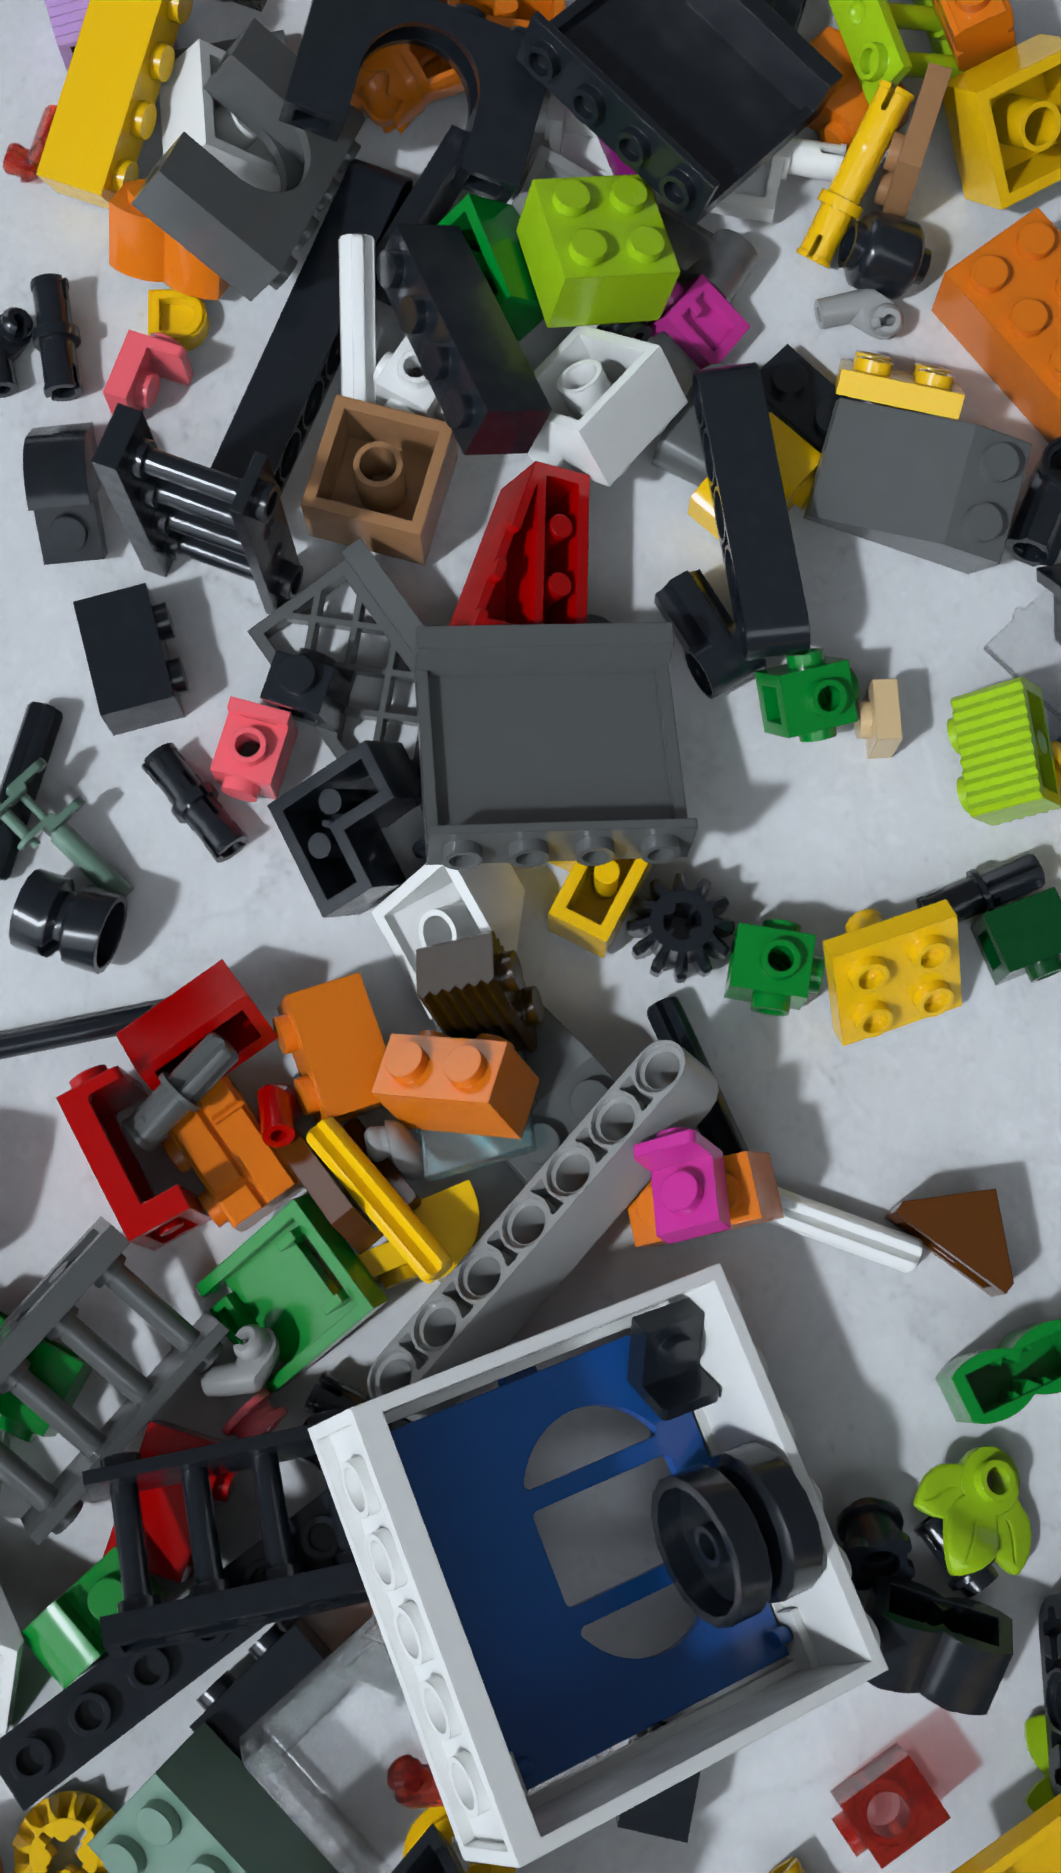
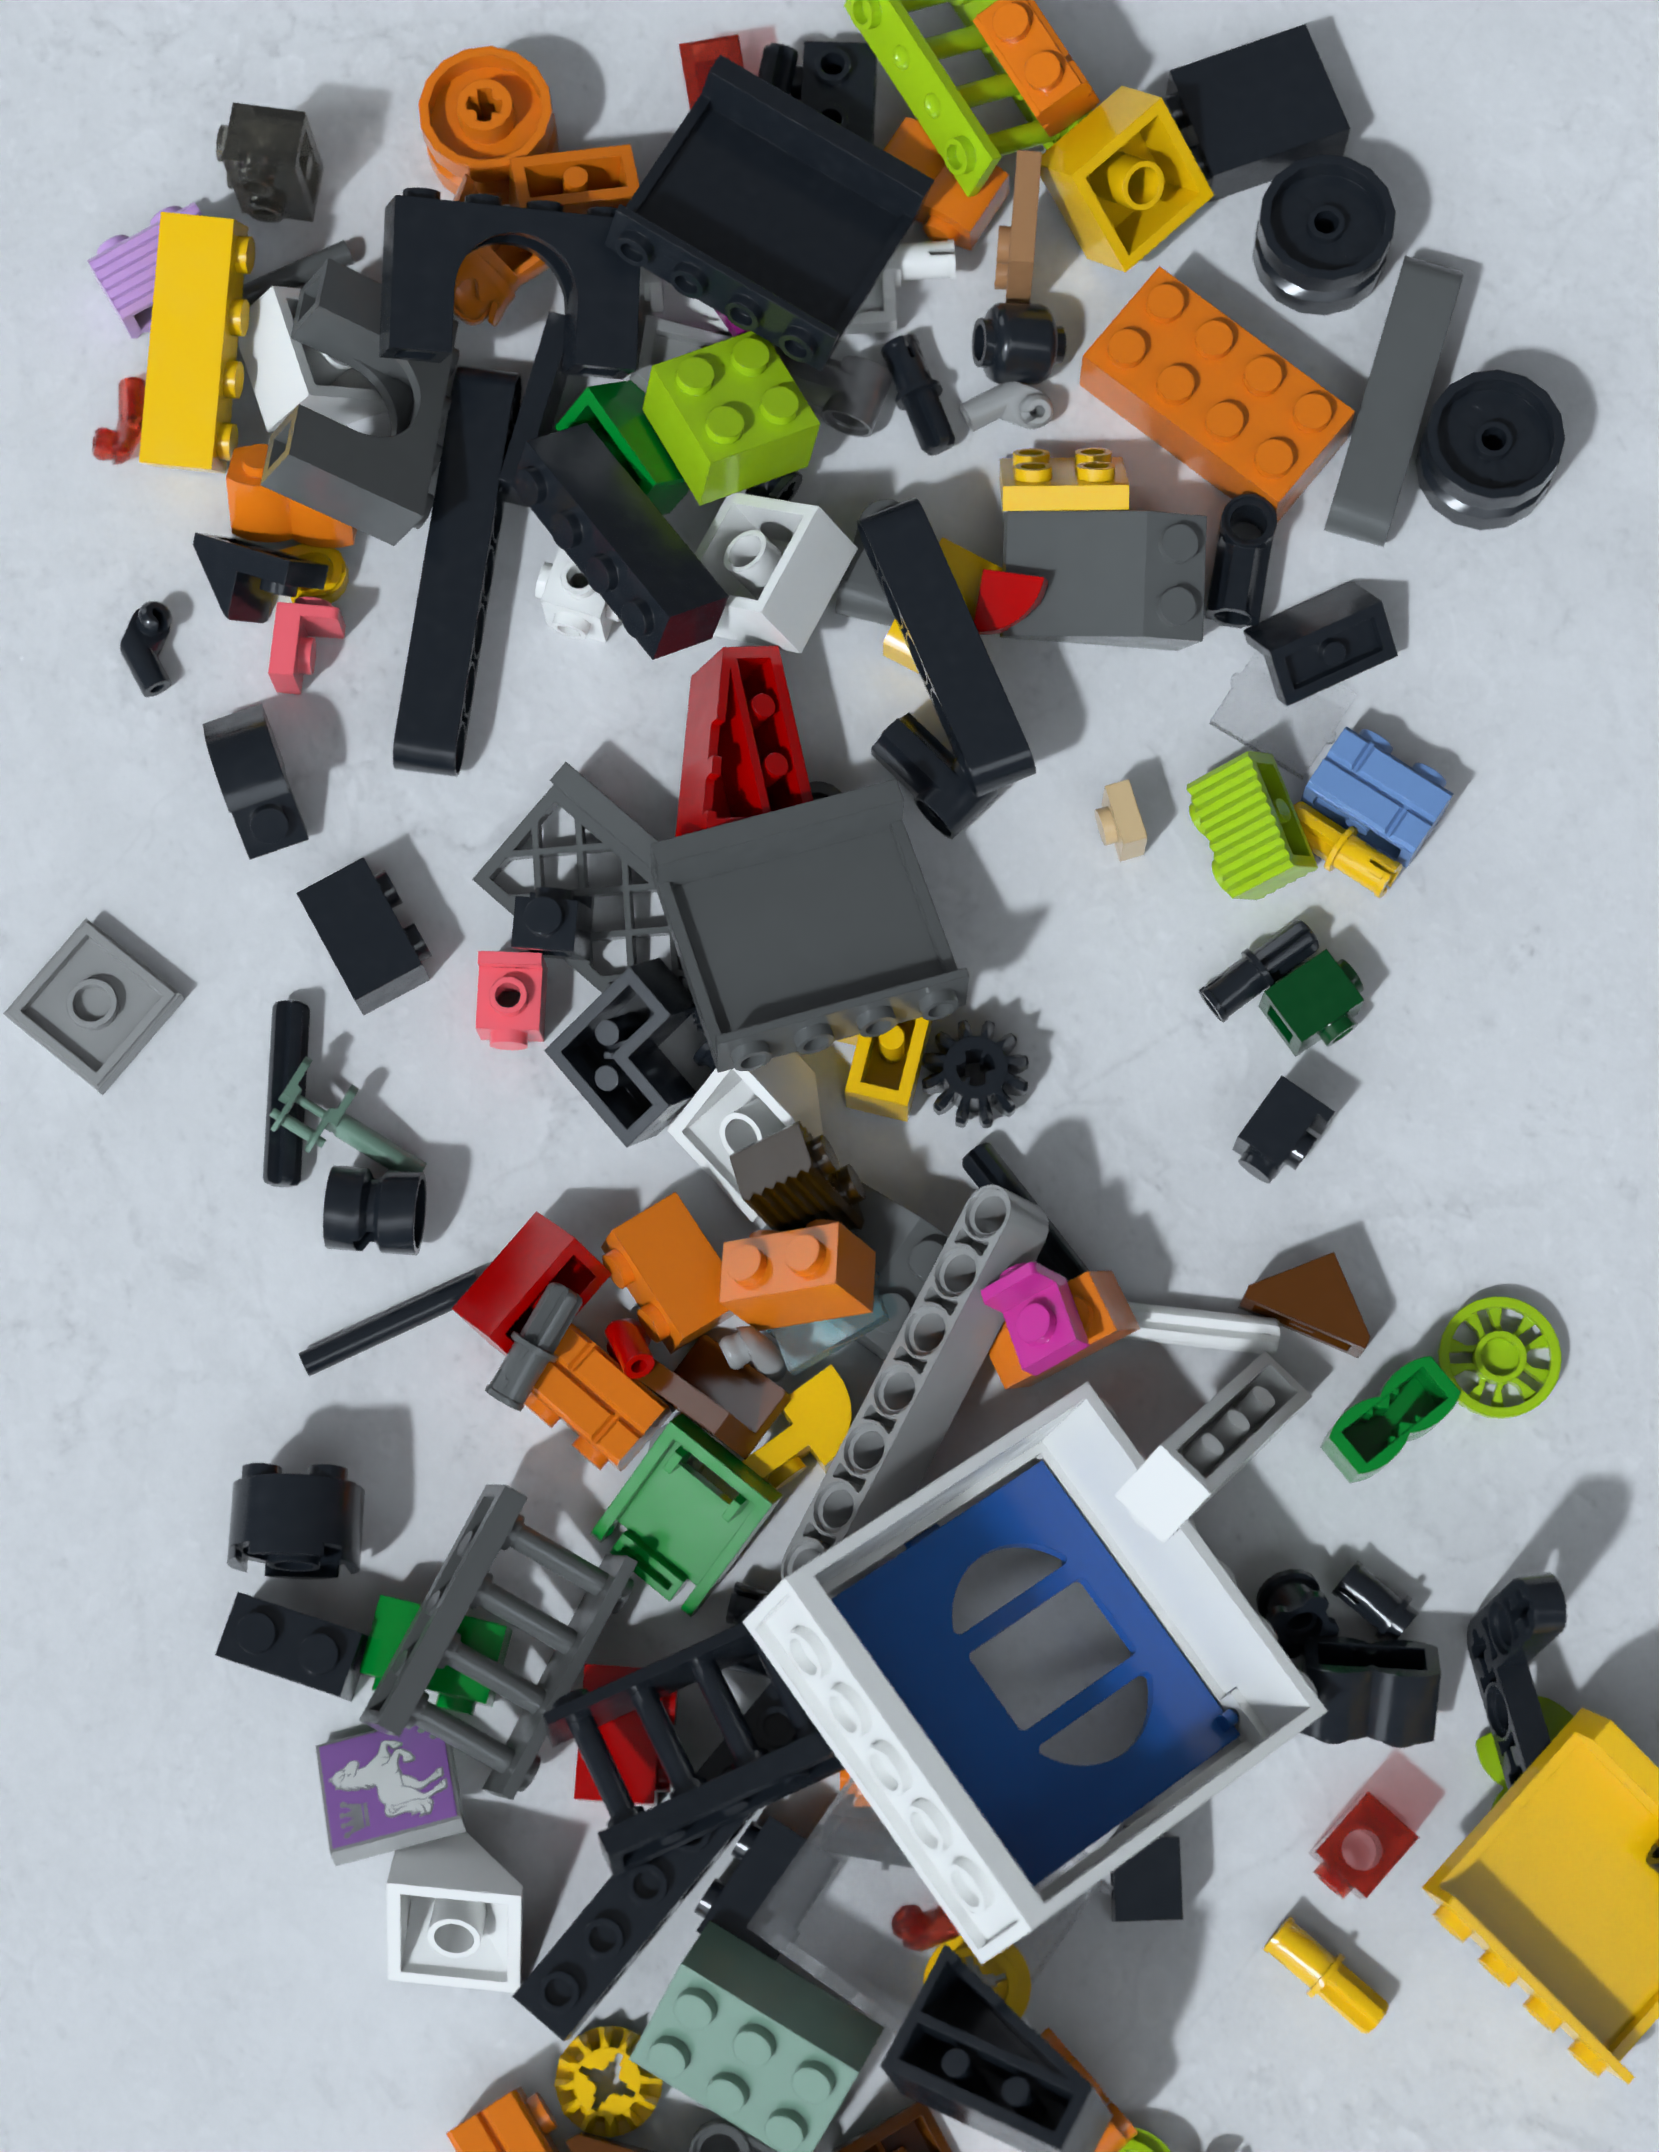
camera: 10 degrees left, 0 degrees up
(56, 337) = (198, 622): black pin -> none
(69, 1629) = (570, 1860): green brick -> none
(92, 1115) = (540, 1476): red panel -> none
(111, 304) = (249, 574): none -> black slope
(194, 802) = (465, 1063): black pin -> none
(197, 511) = (408, 780): black fence -> none
(250, 1370) = (666, 1595): light grey arm -> none
(255, 1417) = (681, 1635): coral bush -> none
(357, 316) = (507, 545): white axle -> none
(379, 1200) = (751, 1402): yellow axle -> none
(380, 479) = (569, 696): medium nougat brick -> none
(666, 1360) = (1060, 1486): black bracket -> none
(700, 322) = (851, 457): dark pink bracket -> none
(737, 1534) = (1161, 1626): black wheel -> none
(755, 981) = (1060, 1109): green brick -> none
(779, 281) = (918, 394): none -> black axle
(799, 395) = (965, 510): black plate -> none
(808, 696) = (1046, 816): green brick -> none
(819, 480) = (1006, 600): none -> red tile
(829, 1366) = (1212, 1447): none -> white brick
(855, 173) = (969, 272): yellow pin -> none
(892, 970) = (1189, 1067): yellow plate -> none
(967, 1054) = (1280, 1130): none -> black brick
(978, 1521) = (1385, 1566): lime plate -> none

